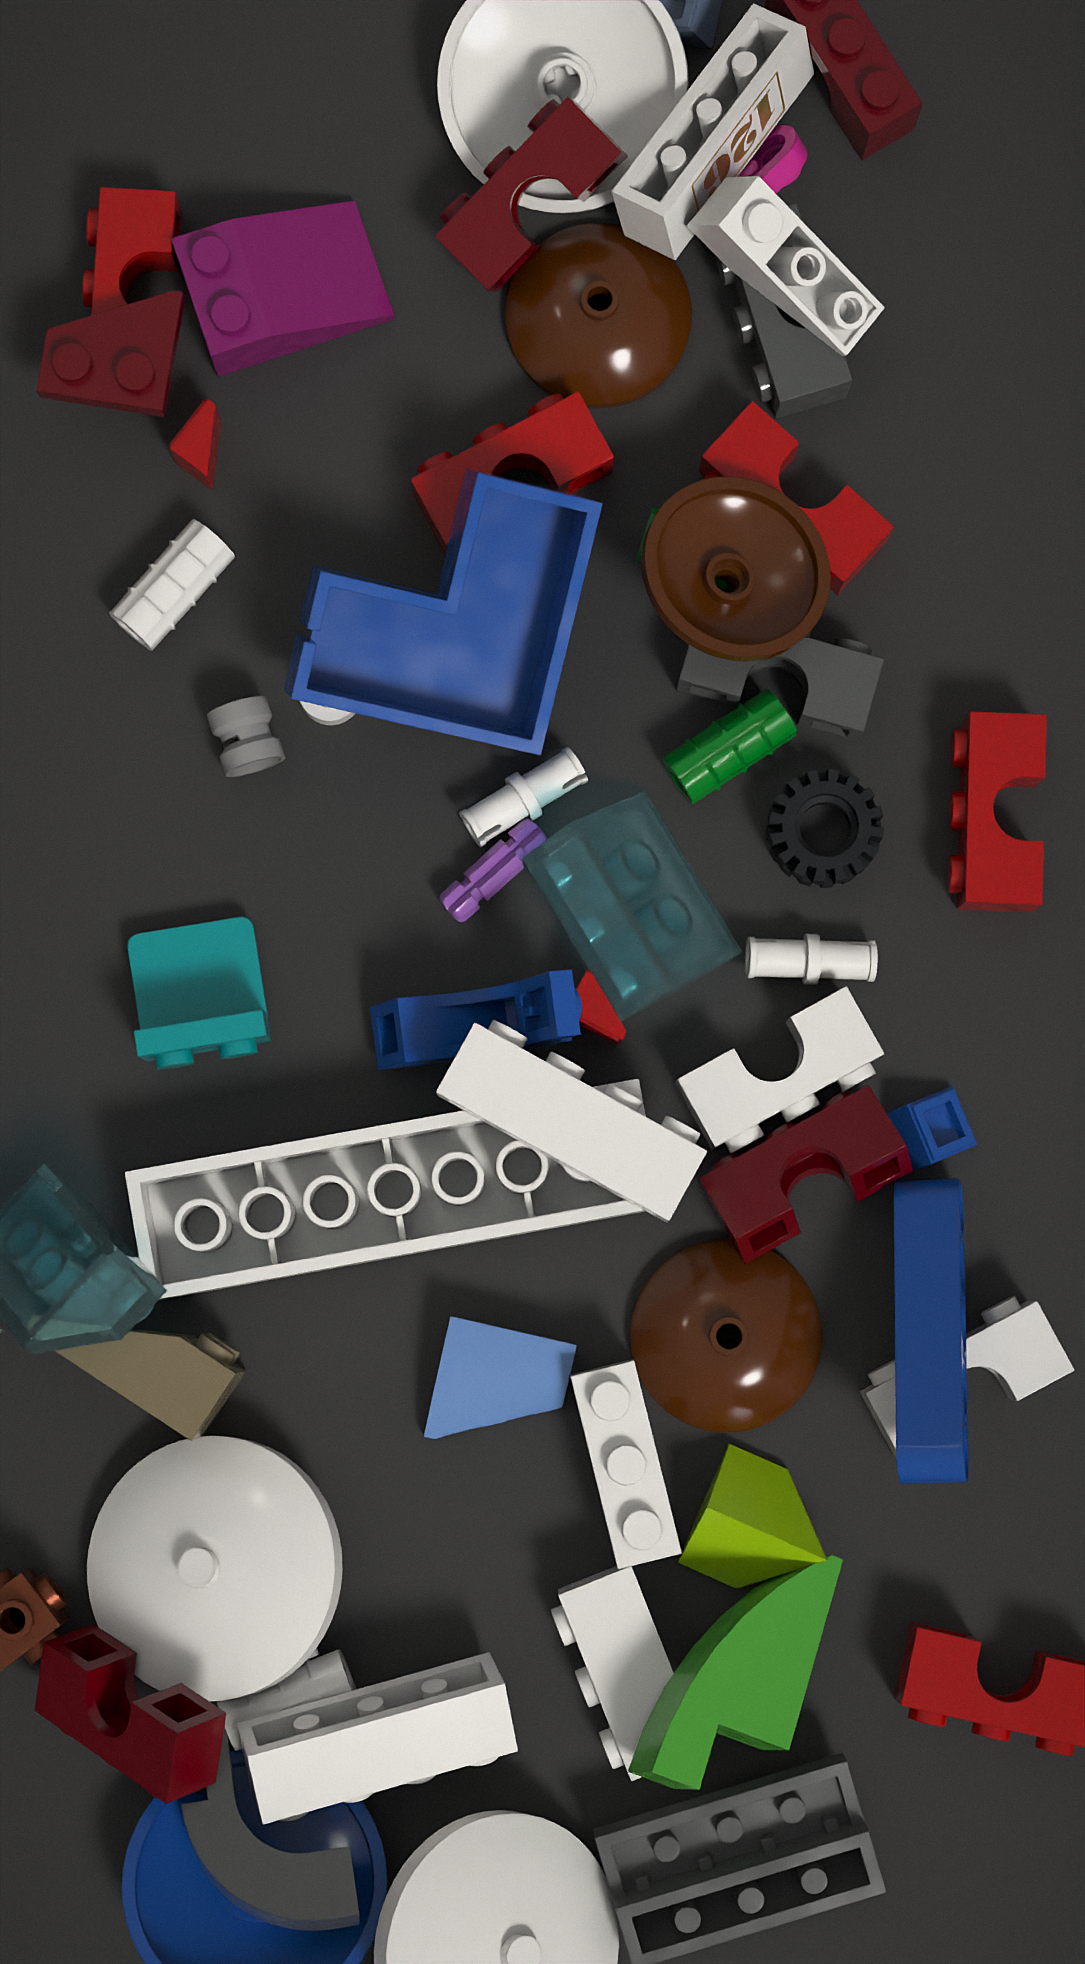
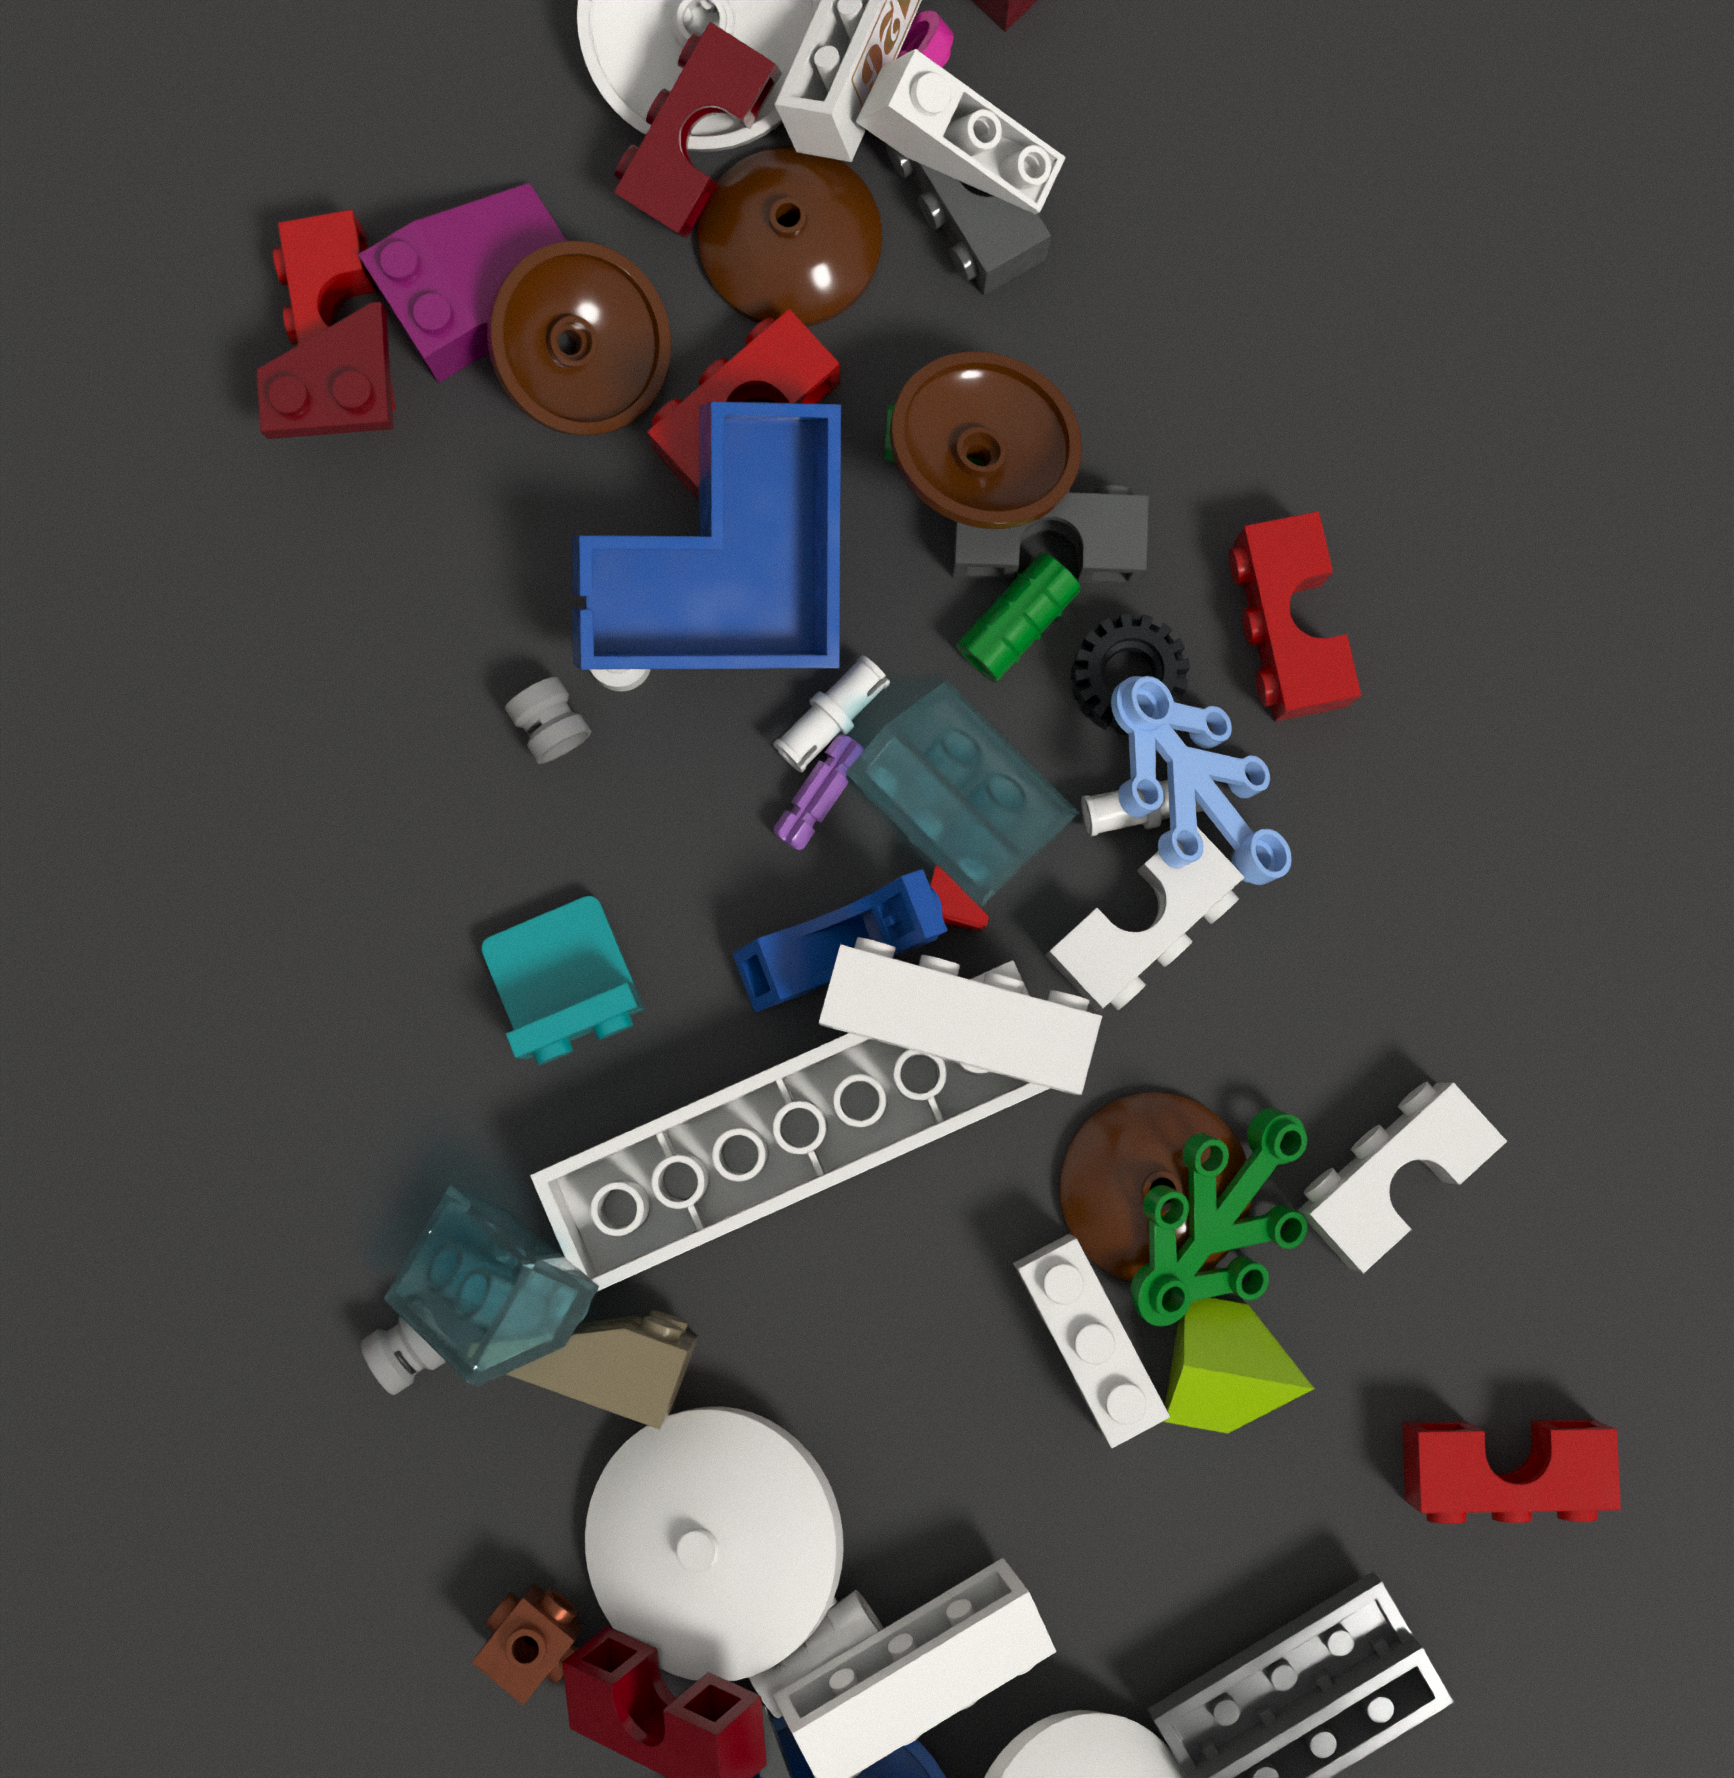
camera: 10 degrees left, 0 degrees up
(172, 584) = (441, 590): white axle -> none
(197, 444) = (433, 448): red slope -> none
(403, 376) = (615, 330): none -> reddish brown dish
(495, 1377) = (942, 1284): medium blue slope -> none
(620, 1652) = (1143, 1545): white brick -> none
(740, 1678) = (1258, 1526): bright green slope -> none
(760, 451) = (982, 322): red arch -> none
(772, 1381) = (1215, 1223): none -> green plant
(844, 1139) = (1228, 970): dark red arch -> none
(856, 944) = (1149, 716): none -> light blue plant
(930, 1332) = (1361, 1141): blue beam -> none
(933, 1128) = (1301, 941): blue slope -> none

